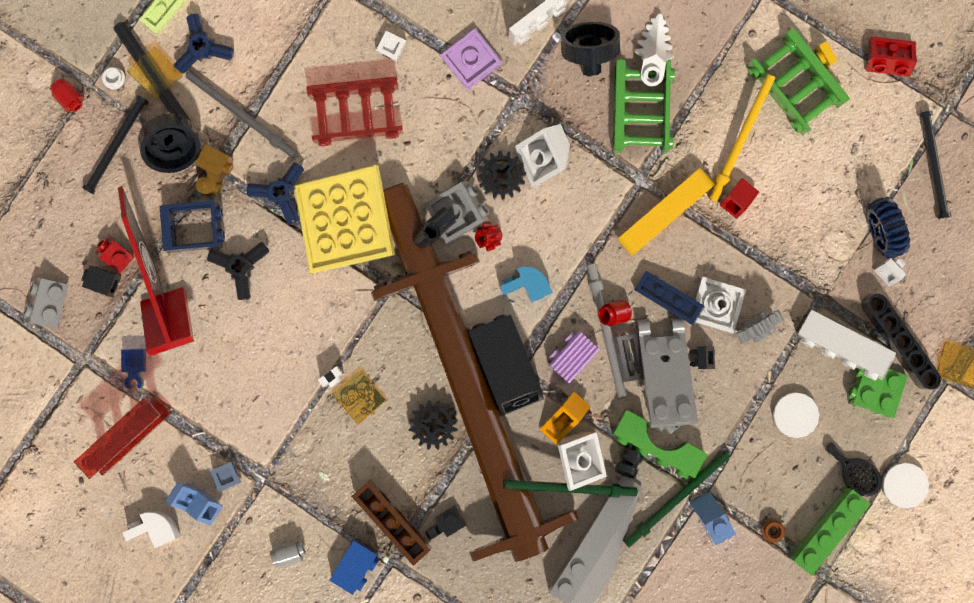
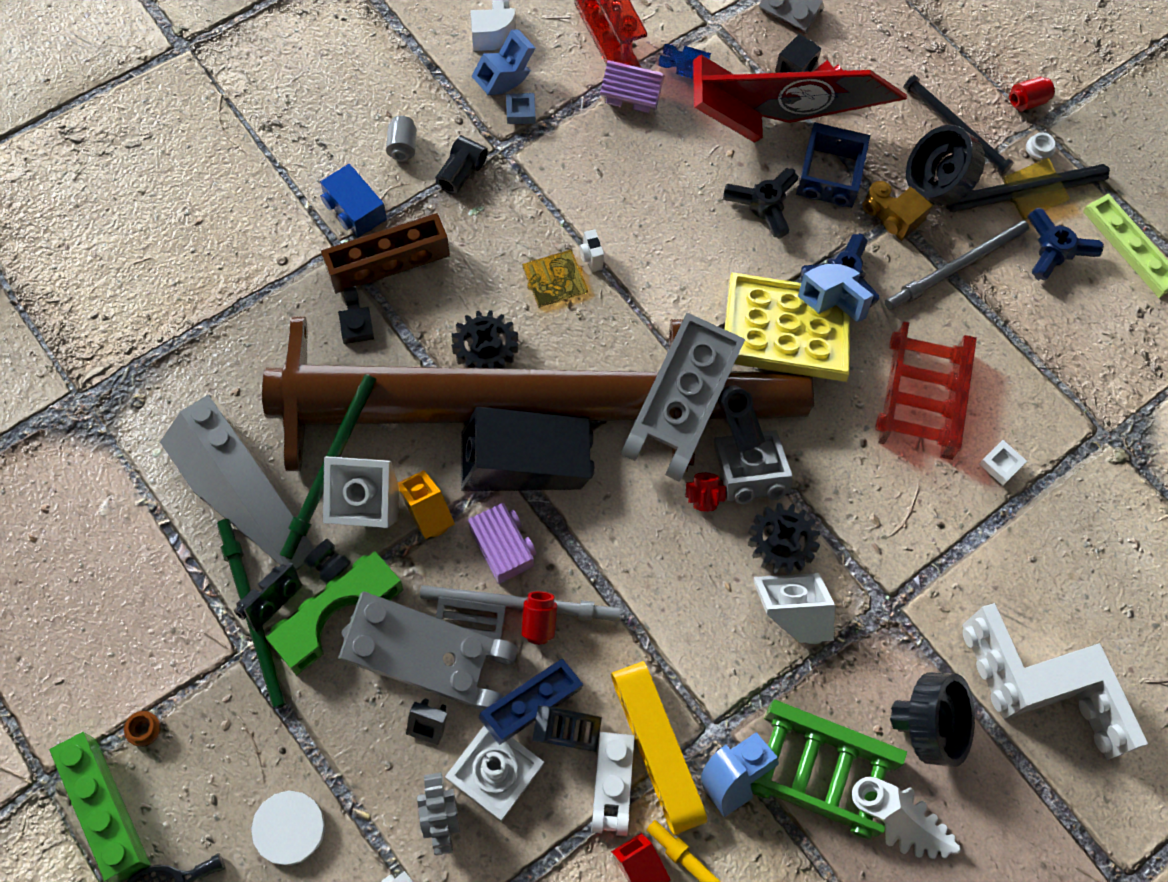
camera: 110 degrees right, 20 degrees down
(177, 398) = (631, 86): none -> lavender brick
(286, 500) = (463, 160): none -> black piece
(301, 194) = (833, 286): none -> medium blue brick
(422, 270) = (688, 381): none -> light grey hinge
(471, 59) = (958, 560): lavender tile -> none
(533, 282) = (624, 526): dark azure brick -> none
(655, 486) = (276, 590): none -> black hinge
(667, 159) = (731, 771): none -> medium blue brick
(677, 283) = (545, 724): none -> black slope
(696, 232) = (613, 782): none -> white plate
(712, 518) = (199, 647): medium blue slope -> none

